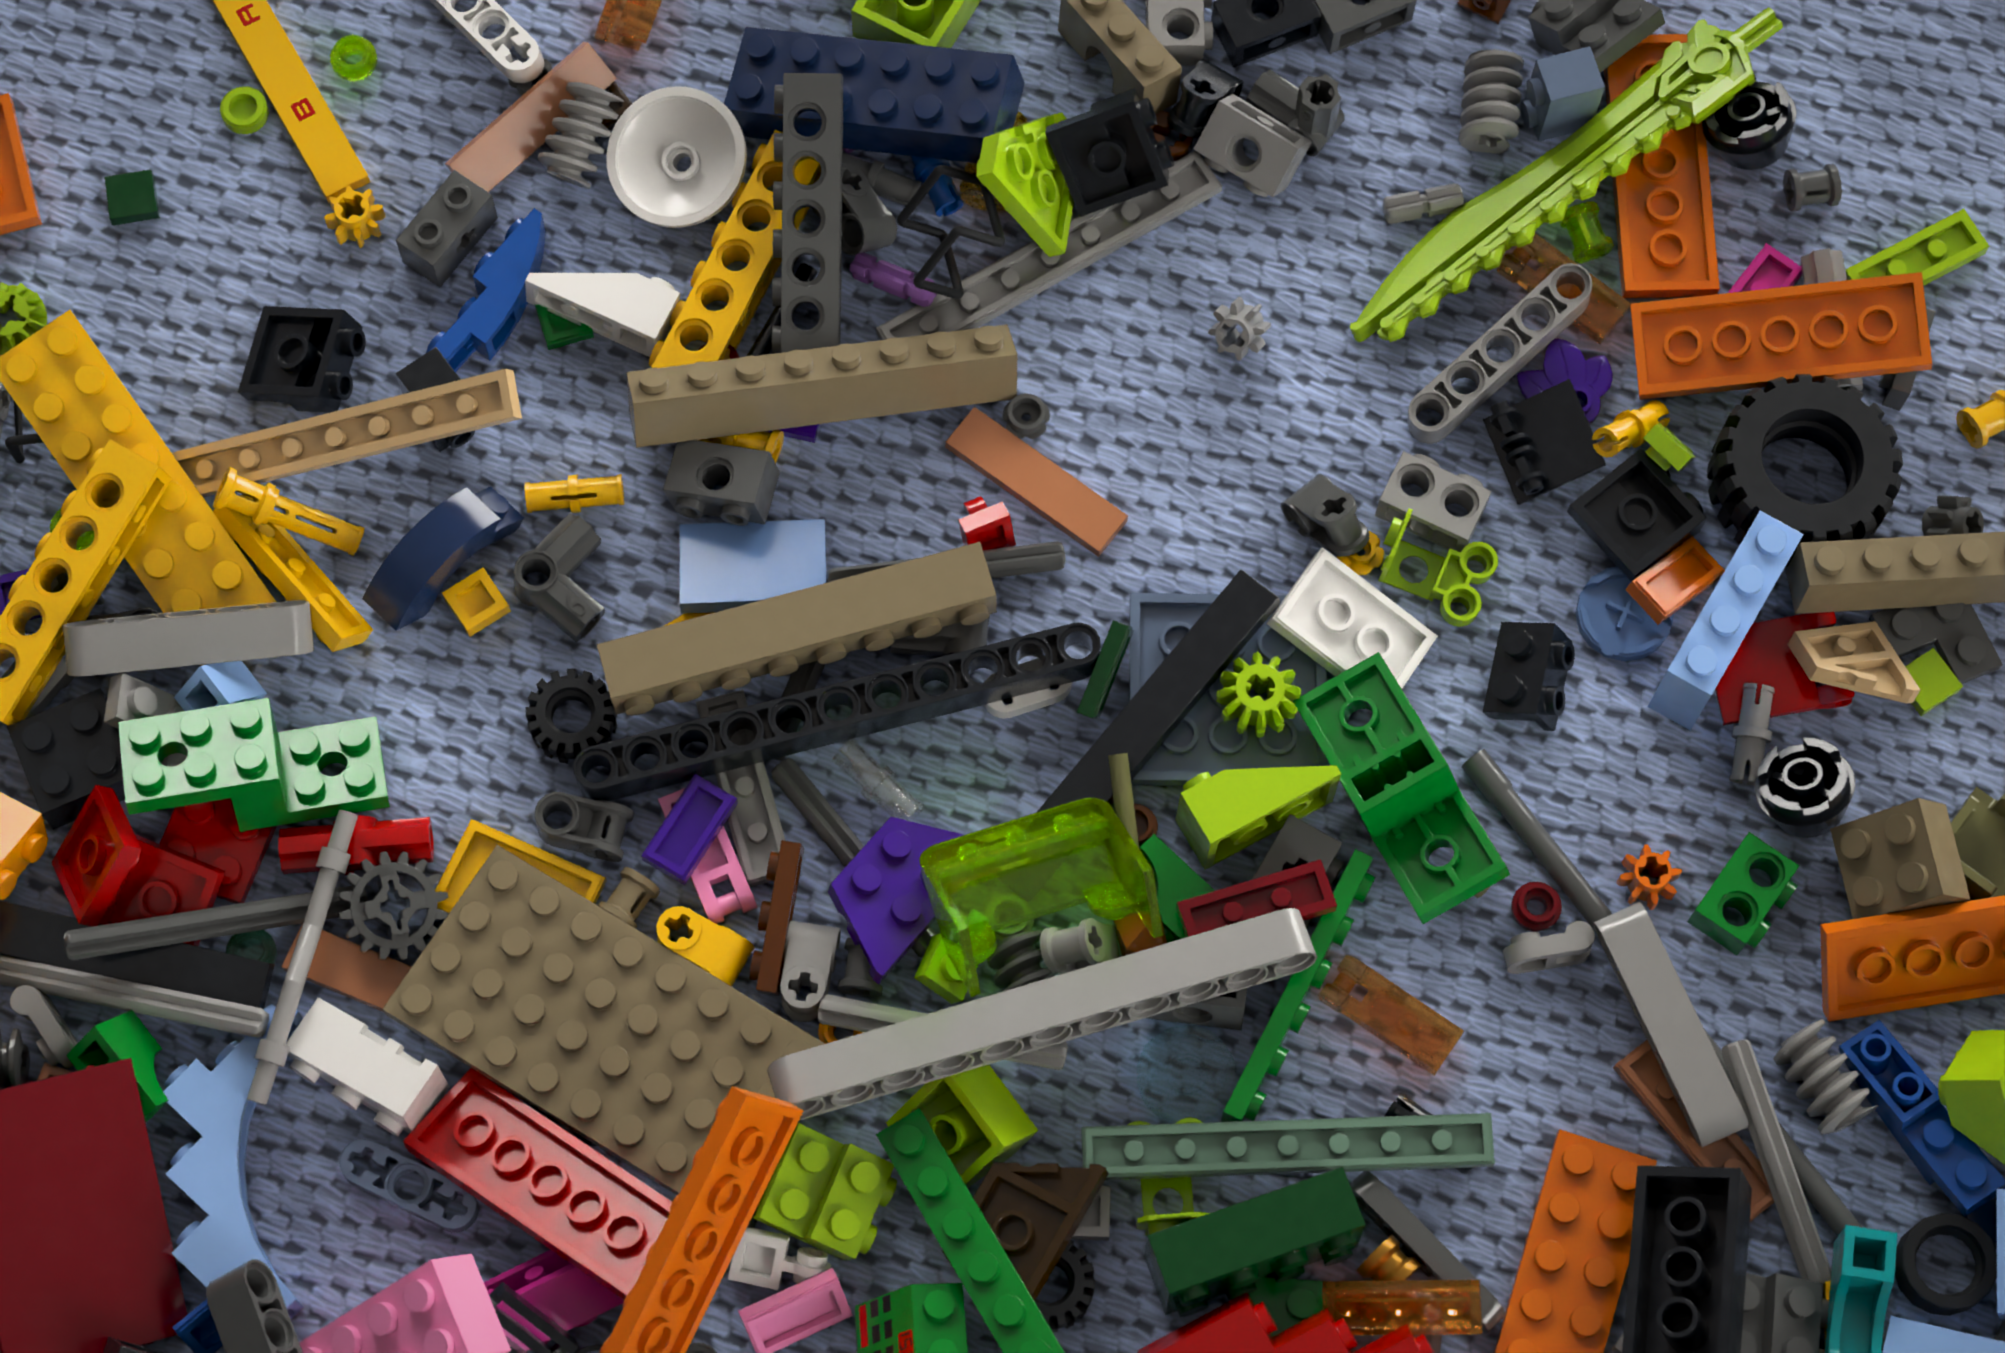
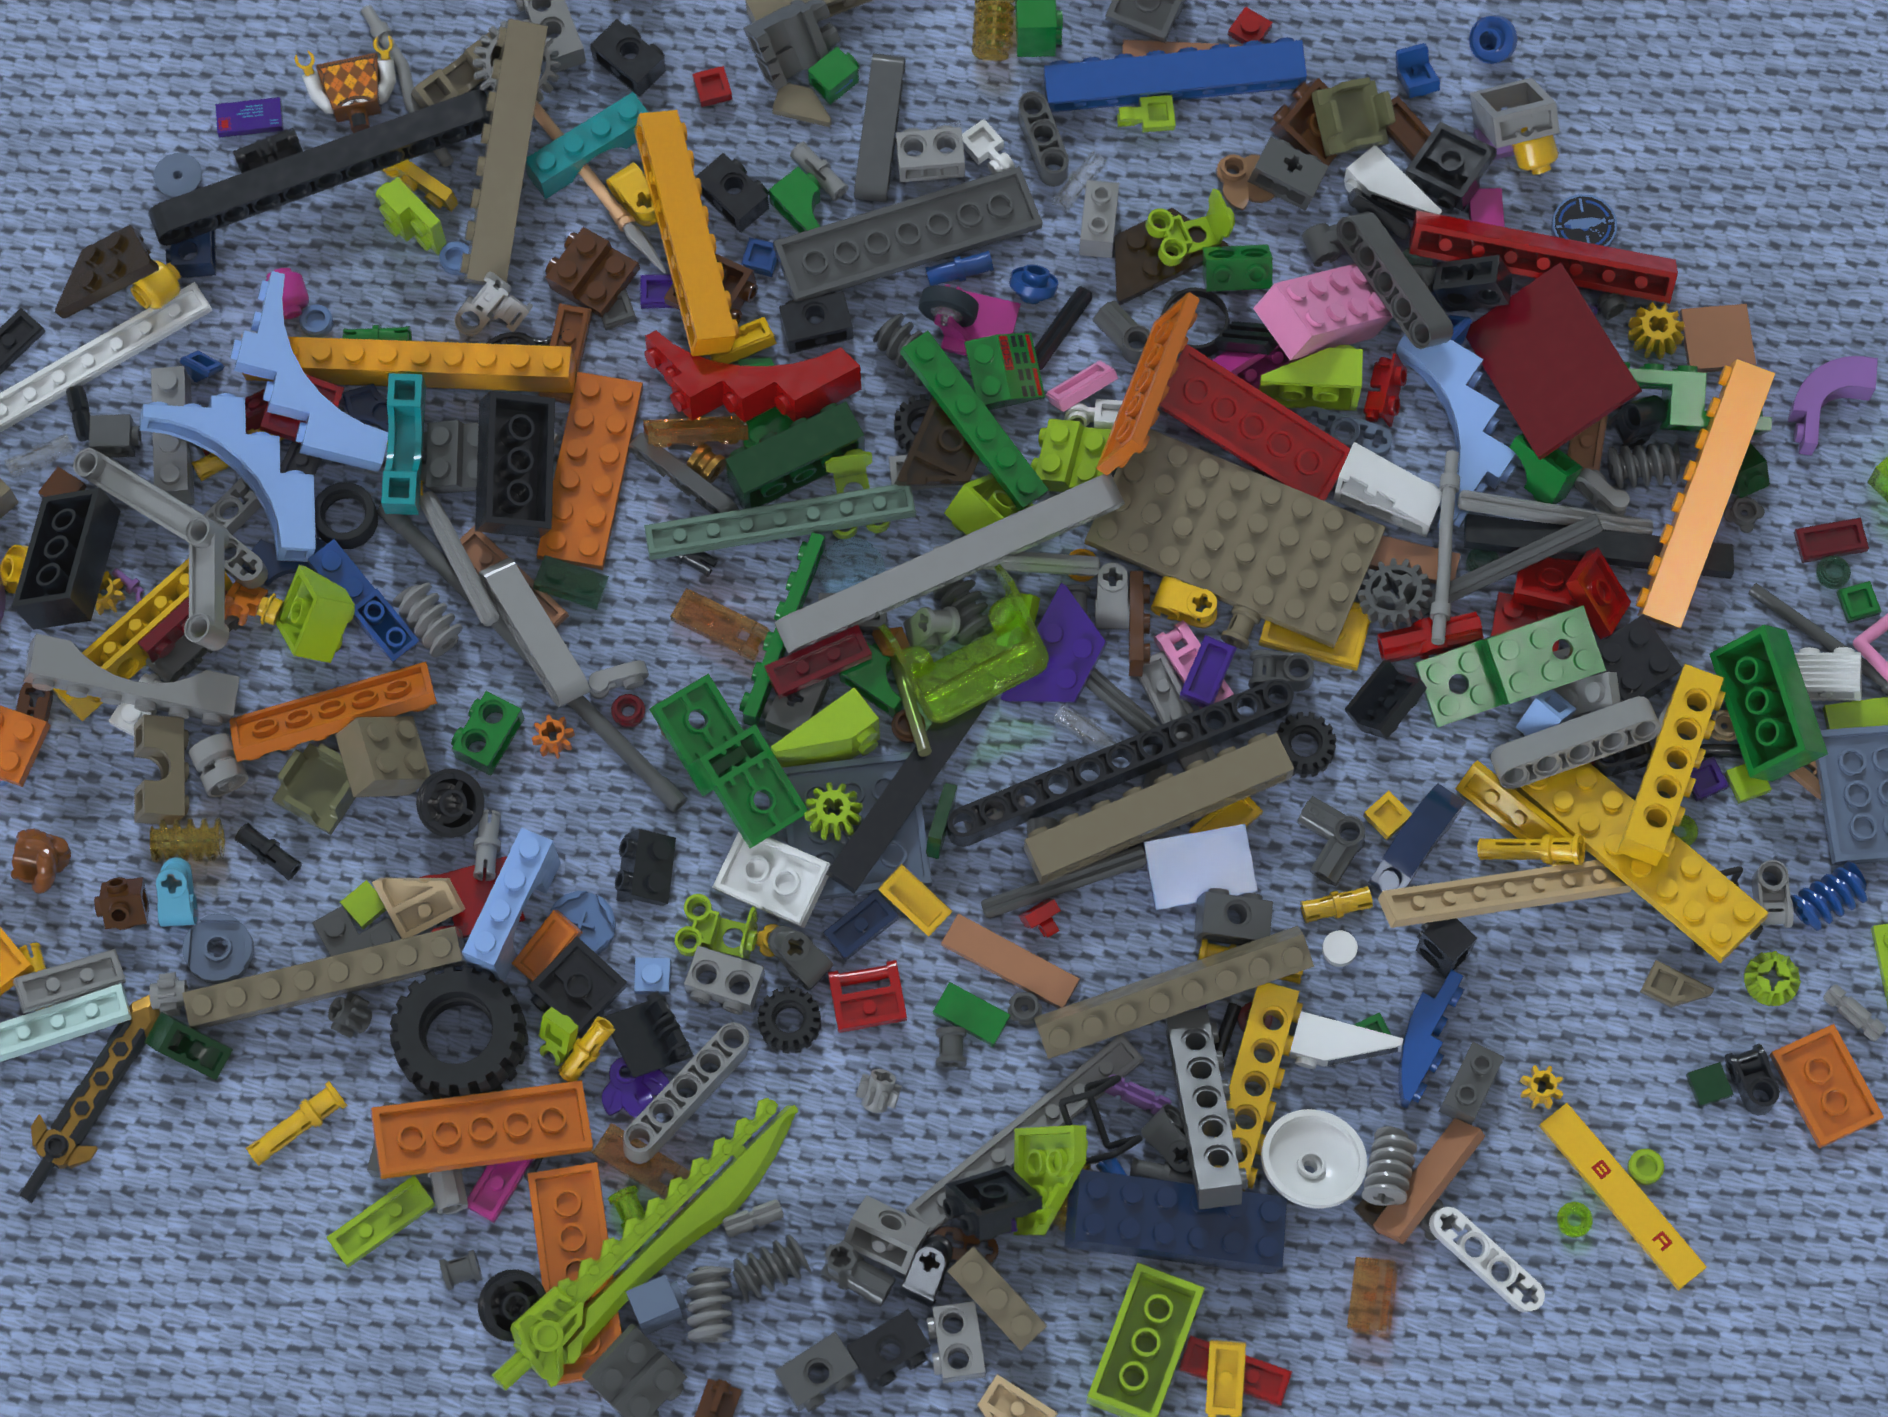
camera: 175 degrees right, 0 degrees up
(70, 195) = (1753, 1072): none -> black piece
(145, 327) = (1673, 986): none -> dark tan tile
(303, 358) = (1552, 971): black plate -> none
(321, 1259) = (1389, 376): none -> red hinge
(403, 1241) = (1322, 380): none -> lime slope
(441, 757) = (1384, 700): none -> black bracket
(582, 437) = (1339, 948): none -> white tile
(1099, 420) = (971, 1013): none -> green tile
(1134, 375) = (951, 1047): none -> dark grey bush
(1157, 572) = (915, 900): none -> yellow tile
(1238, 444) = (870, 1006): none -> red plate
(1243, 547) = (861, 925): none -> dark blue plate
(1355, 415) = (789, 999): none -> black tyre
(1408, 128) = (769, 1267): none -> dark grey piece
(1530, 530) = (652, 975): none -> light blue plate
(1608, 1109) = (570, 582): none -> clear green plate

